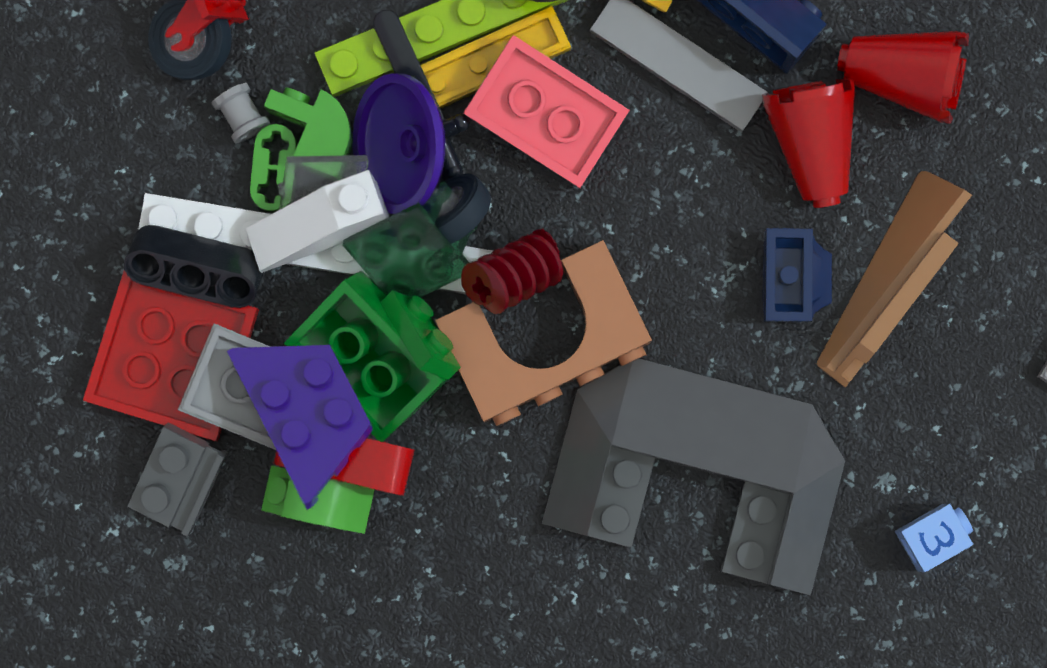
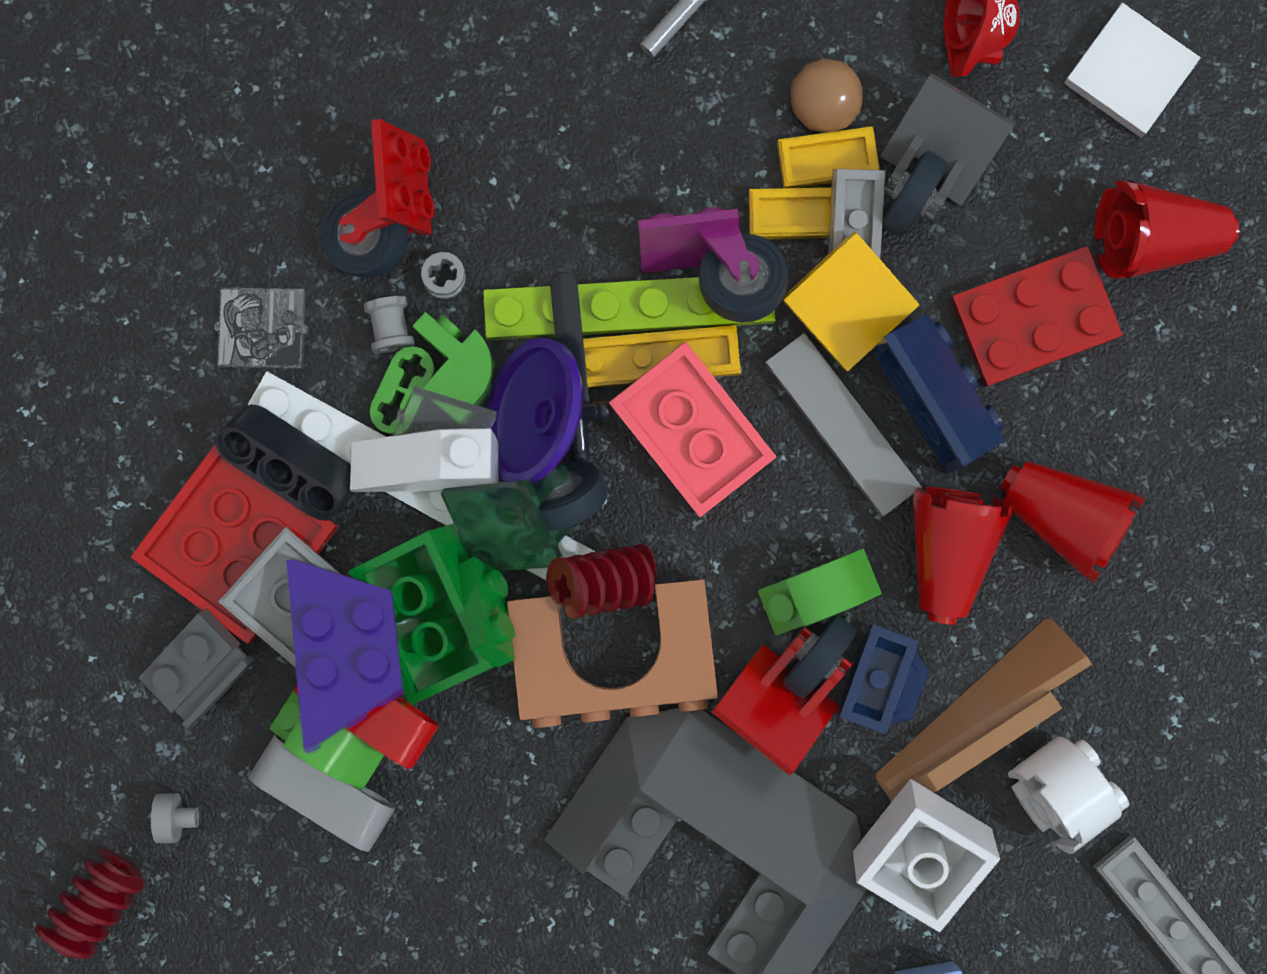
camera: 20 degrees right, 0 degrees up
(125, 157) = (261, 328): none -> piece
(202, 619) = (170, 817): none -> light grey tile
(262, 44) = (435, 263): none -> light grey bush
(328, 550) = (338, 807): none -> light grey beam
(708, 329) = (778, 705): none -> red plate
(709, 216) = (820, 592): none -> bright green brick
(882, 413) = (925, 855): none -> white brick
(989, 315) = (1067, 792): none -> white brick

